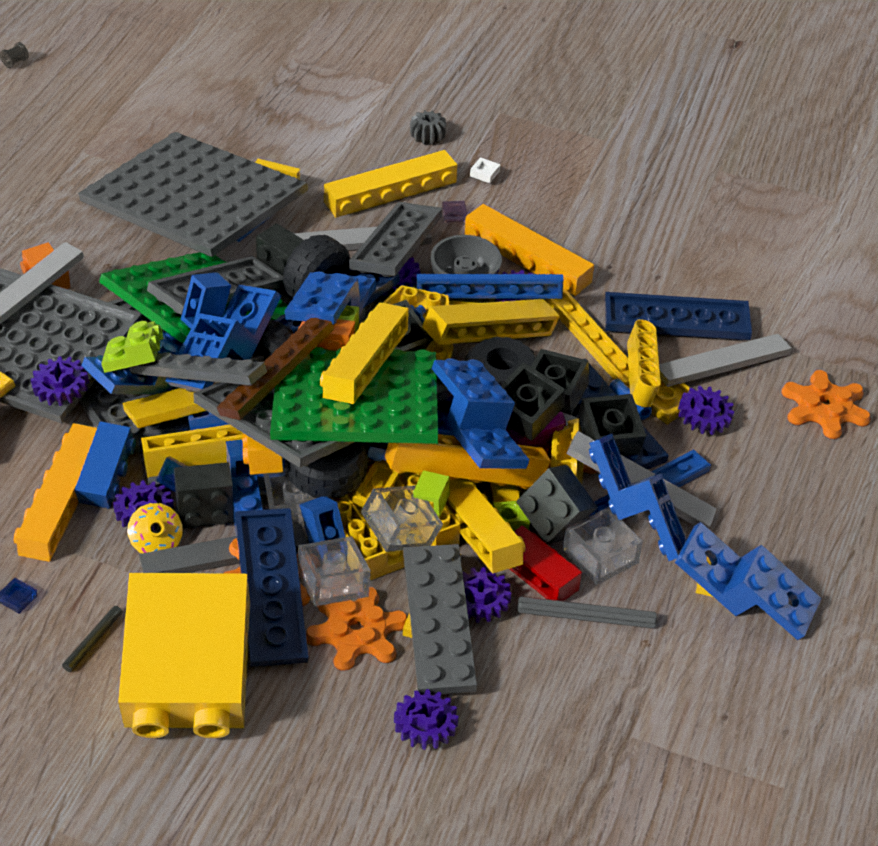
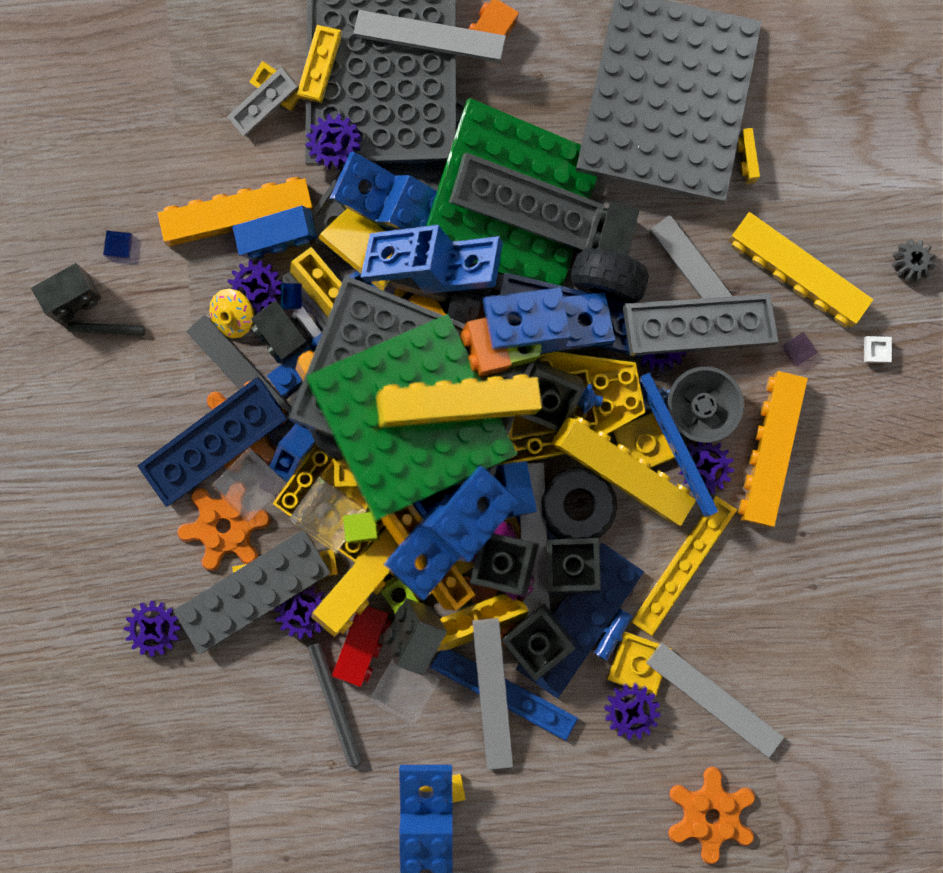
camera: 65 degrees right, 40 degrees up
(37, 638) = (66, 293): none -> pearl dark grey brick
(137, 349) = (374, 190): lime plate -> none
(185, 653) = (99, 418): yellow brick -> none
(202, 368) = (369, 264): dark grey plate -> none
(205, 295) = (463, 220): blue brick -> none
(278, 366) = (398, 333): reddish brown plate -> none
(634, 498) = (454, 705): blue bracket -> none
(643, 363) = (645, 631): yellow beam -> none
(679, 315) = (756, 632): dark blue plate -> none

